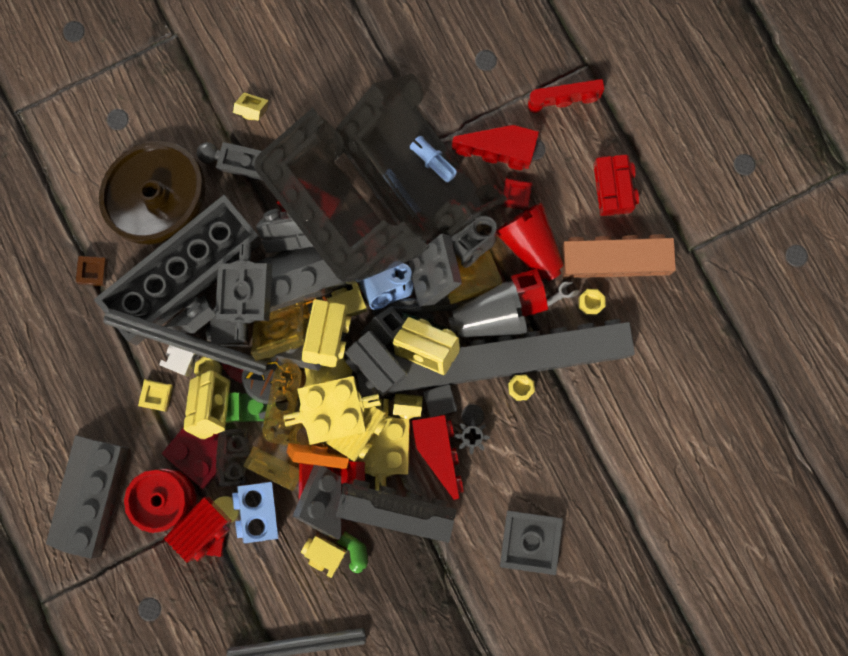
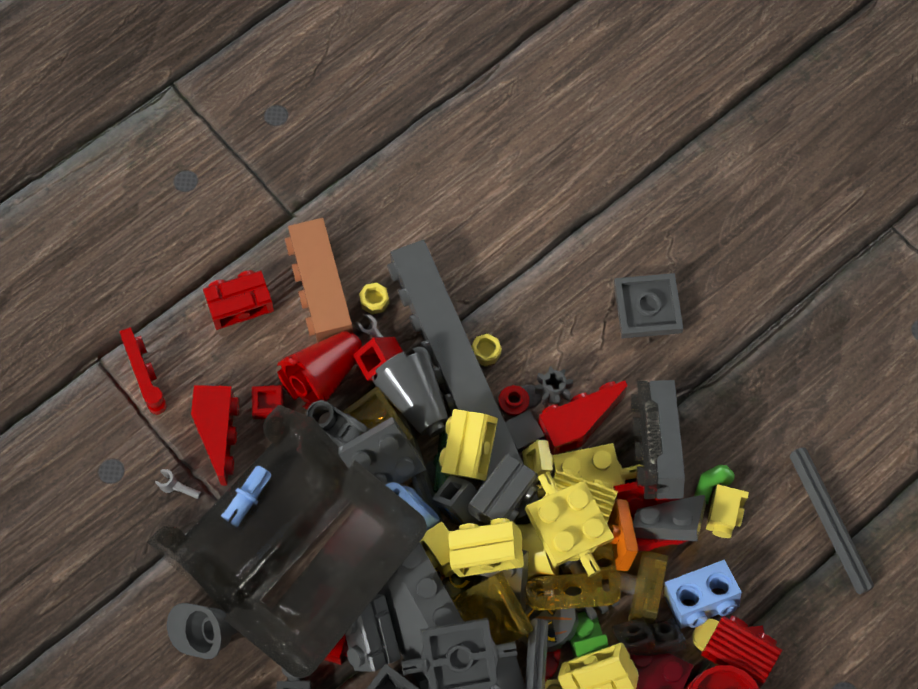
camera: 105 degrees left, 15 degrees down
(331, 101) = (199, 630): none -> dark grey piece
(460, 106) = (174, 484): none -> light grey hand
(469, 409) = (514, 409): none -> red plate

